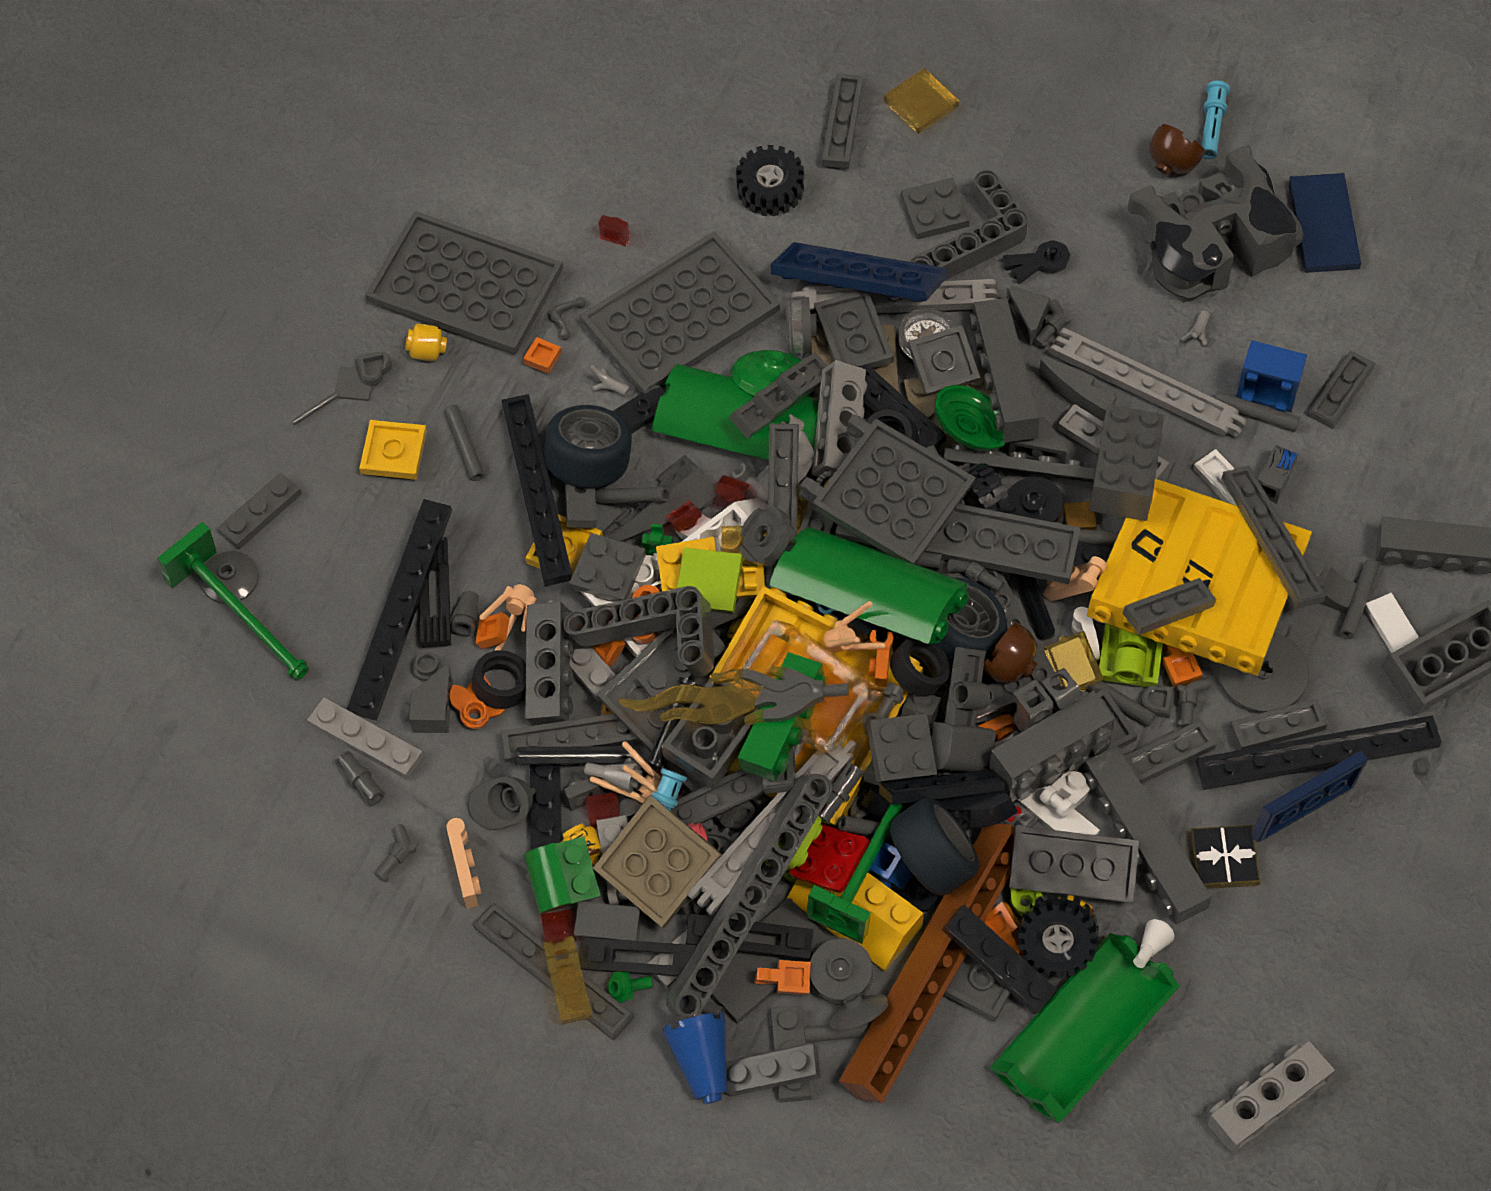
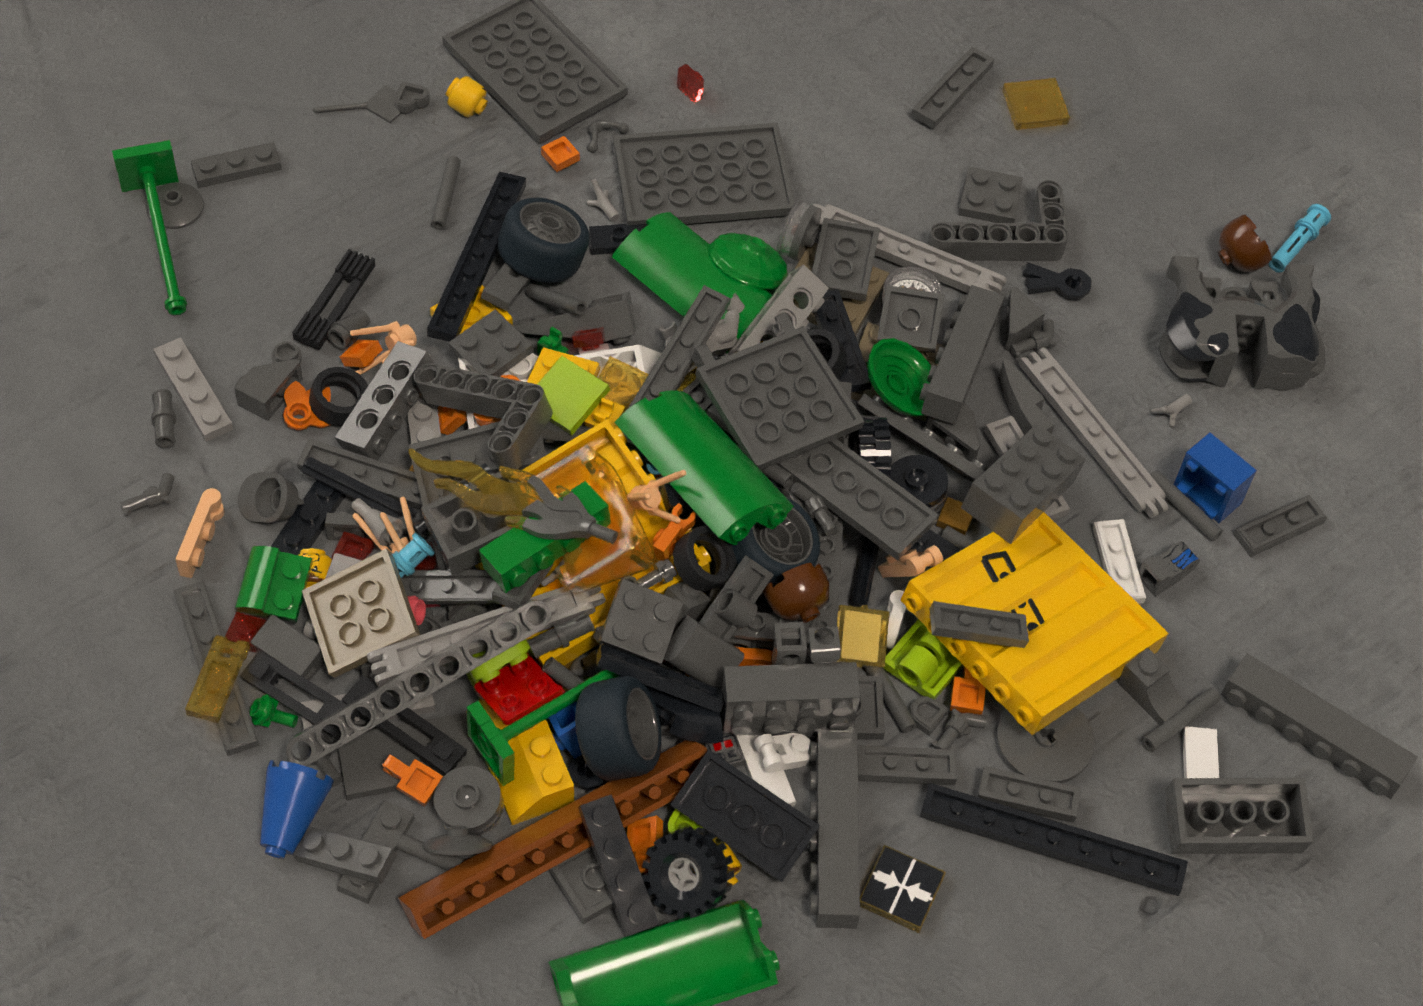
camera: 20 degrees right, 5 degrees down
(393, 449) = (380, 168): yellow plate -> none
(399, 610) = (292, 297): black plate -> none
(732, 489) = (648, 335): clear red plate -> none
(761, 169) = (855, 105): black wheel -> none
(766, 549) = (640, 378): dark grey plate -> none
(779, 396) = (738, 276): dark grey slope -> none
(859, 271) = (882, 211): dark blue plate -> none
(1155, 938) = (785, 926): white cone -> none
(1273, 537) = (1125, 619): dark grey tile -> none
(1309, 797) = (1013, 871): dark blue tile -> none
(1327, 222) = (1353, 374): dark blue tile -> none

